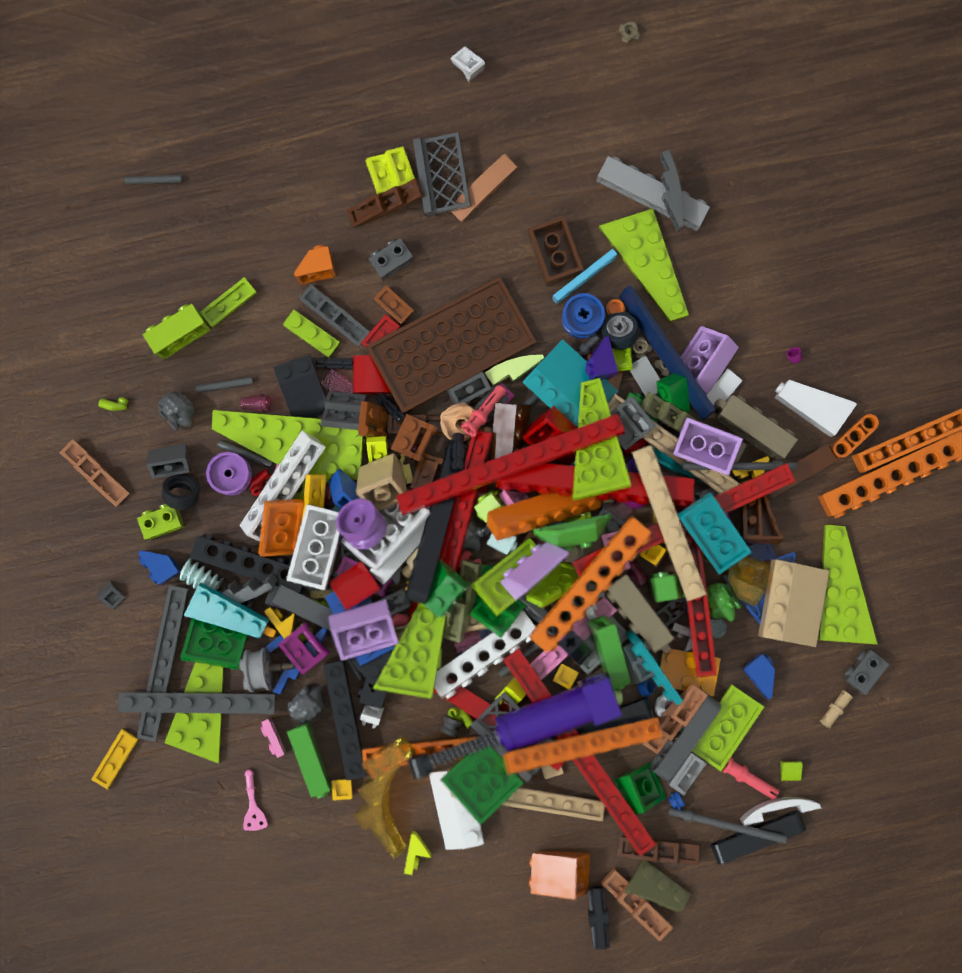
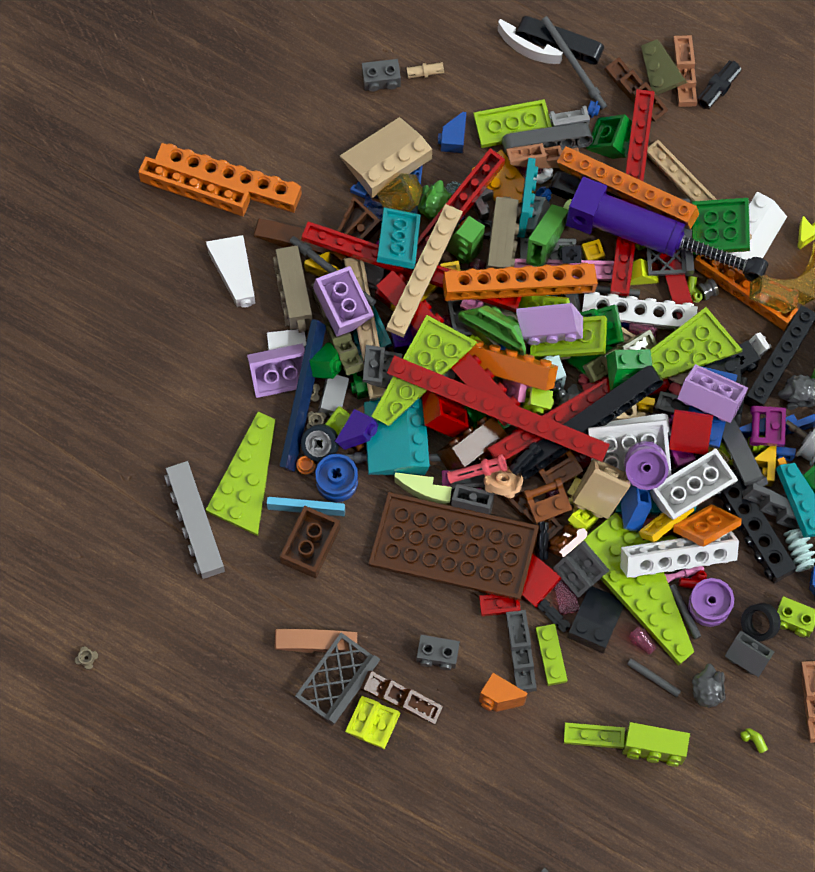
camera: 140 degrees left, 15 degrees down
(393, 305) = (468, 617): dark orange plate -> none
(468, 63) = (232, 746): white slope -> none
(560, 873) = (720, 131): slope -> none
(673, 197) = (186, 495): dark grey slope -> none
(742, 773) = (531, 86): coral pin -> none
(791, 770) = (494, 61): lime slope -> none
(794, 355) = (210, 317): magenta hinge -> none
(844, 607) = (351, 125): lime wing -> none
(861, 431) = (222, 220): orange beam -> none

